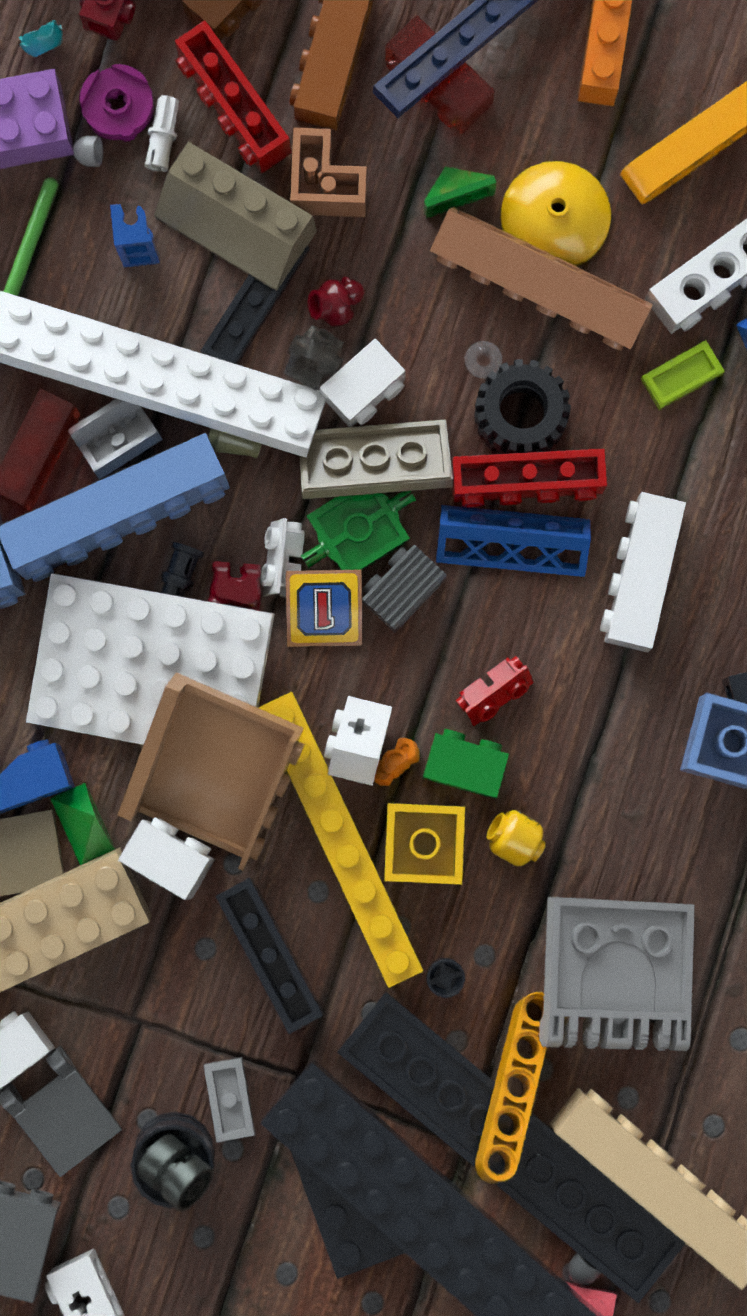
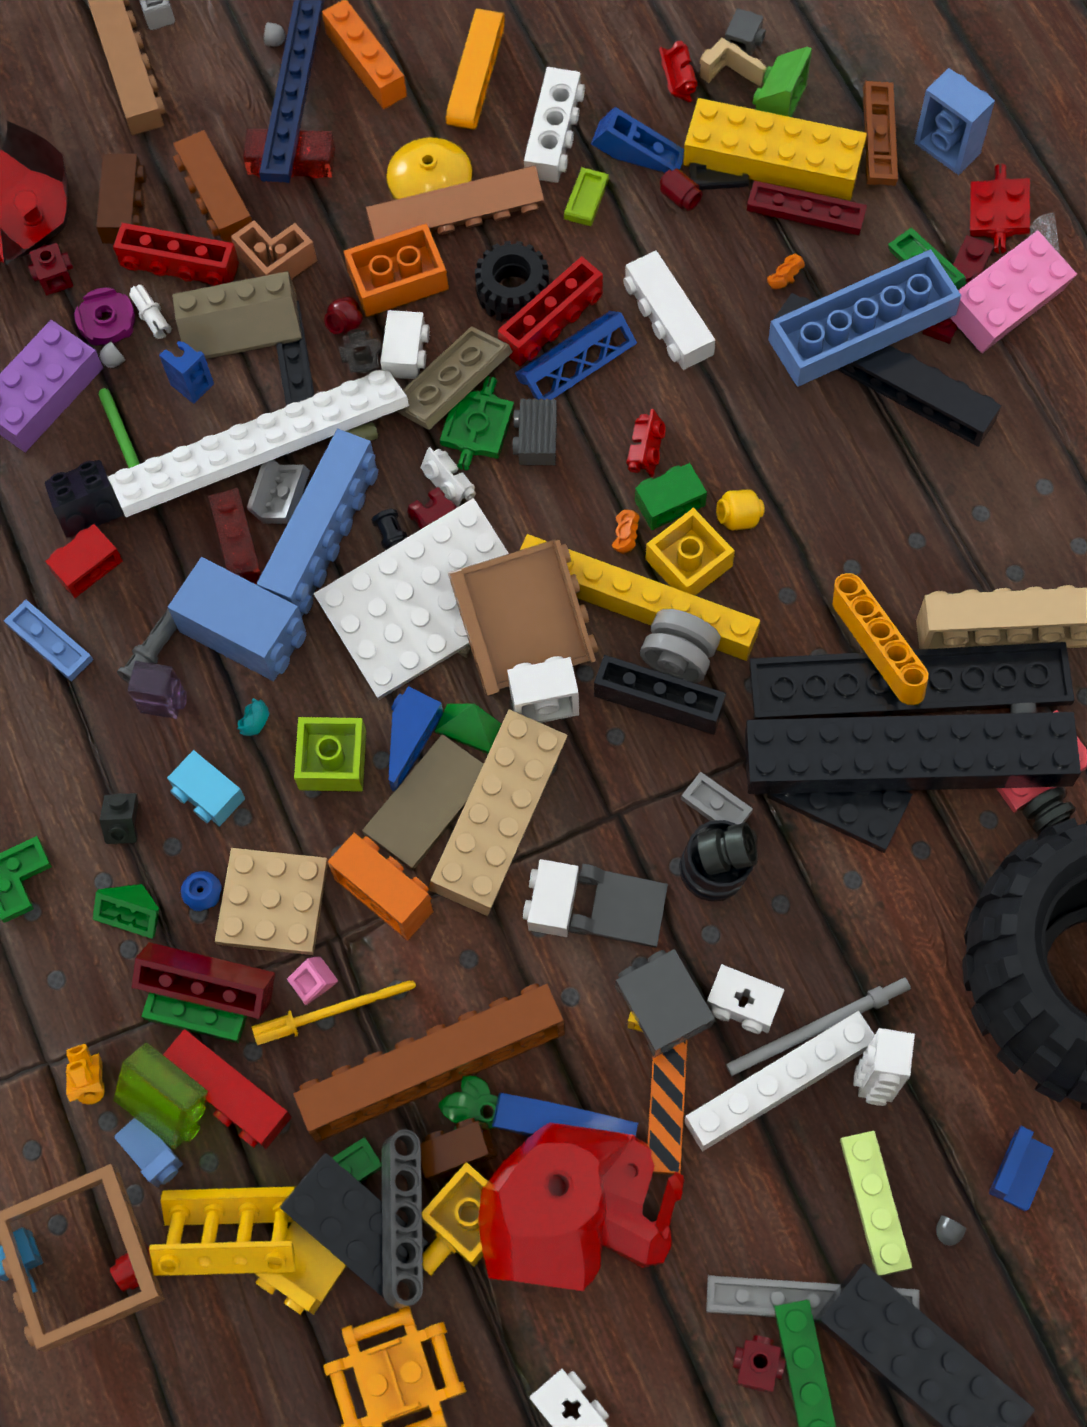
camera: 40 degrees left, 15 degrees down
(42, 40) = (26, 318): teal plate -> none
(324, 608) = (500, 481): slope -> none
(324, 930) = (680, 645): none -> light grey wheel
(358, 740) = (594, 528): white brick -> none
(423, 299) = (396, 269): none -> orange brick
(448, 981) = (778, 614): black wheel -> none
(457, 189) = (355, 203): green slope -> none
(483, 348) = (462, 271): clear plate -> none
(618, 970) = (874, 523): light grey hinge -> none

